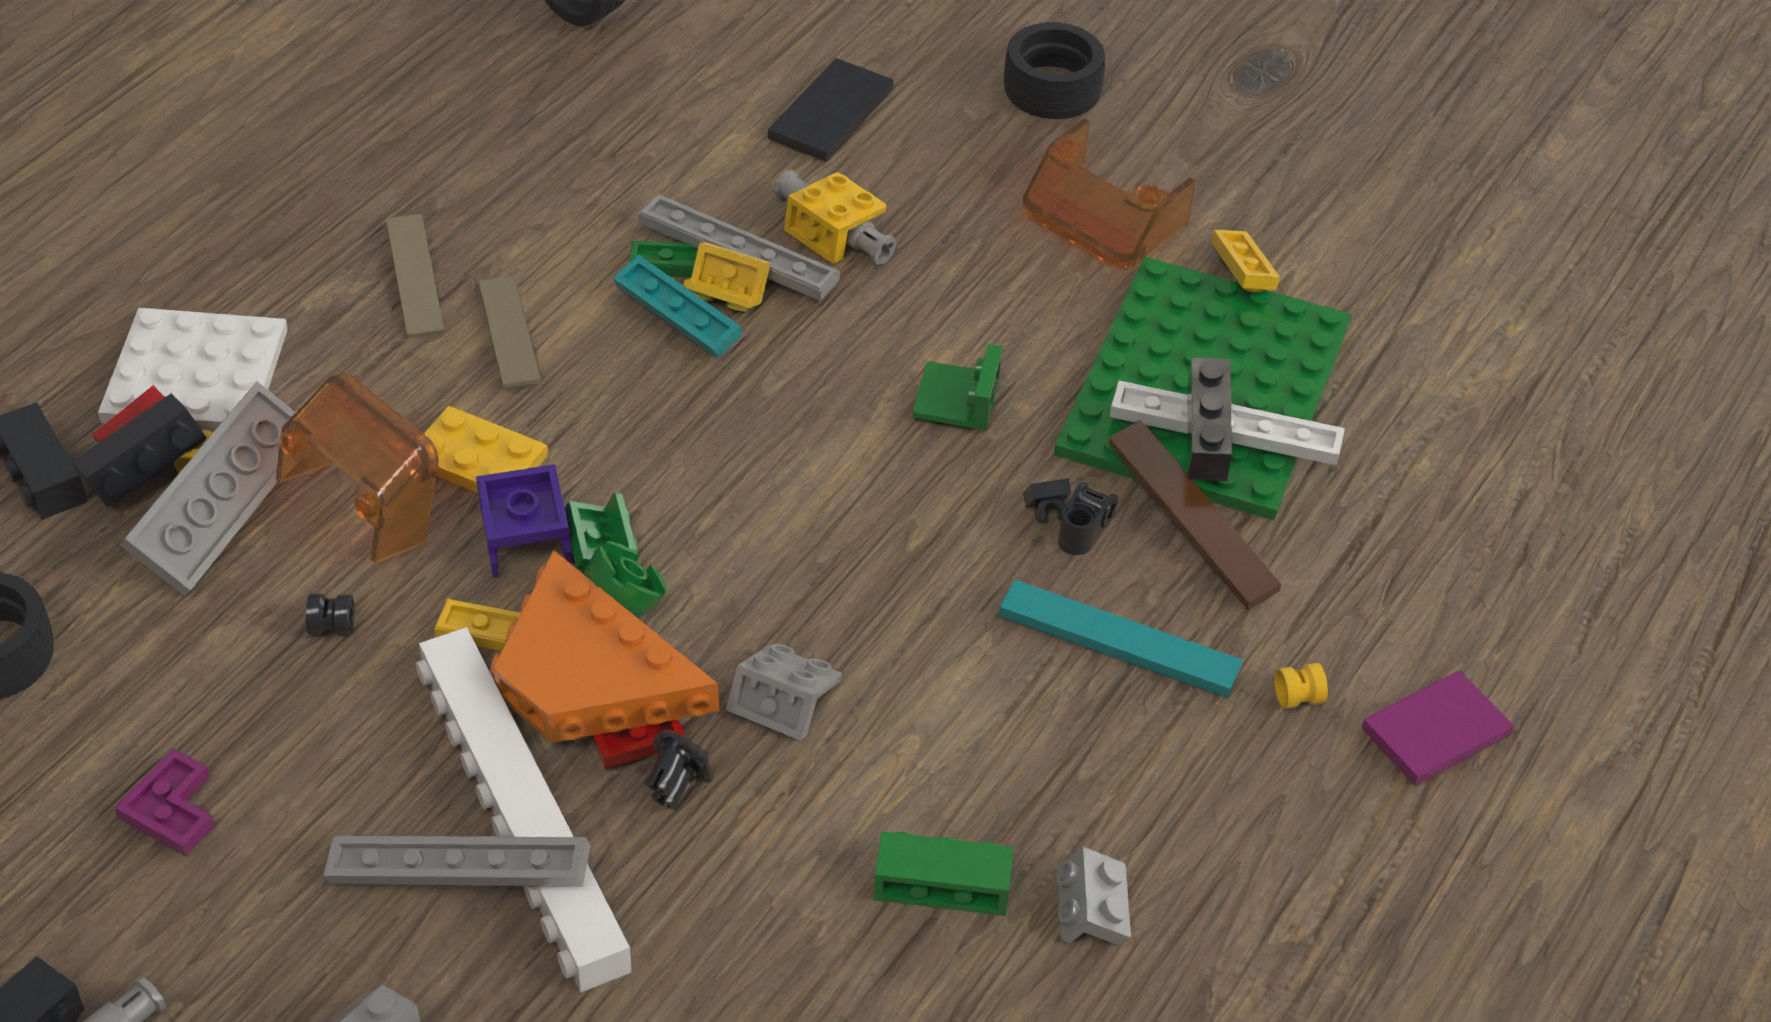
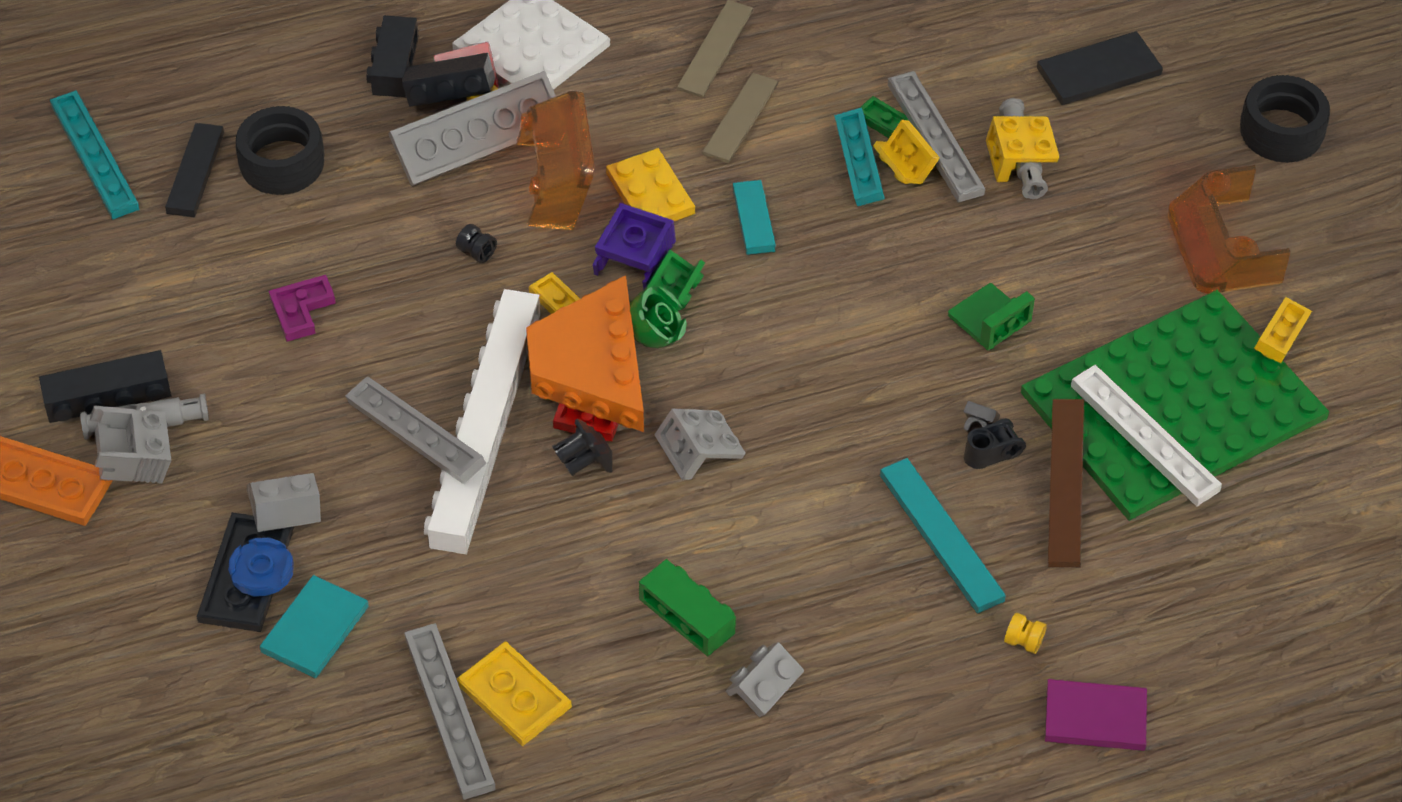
camera: 40 degrees right, 5 degrees up
(619, 424) = (753, 217): none -> teal tile
(1209, 419) = (1120, 423): black brick -> none

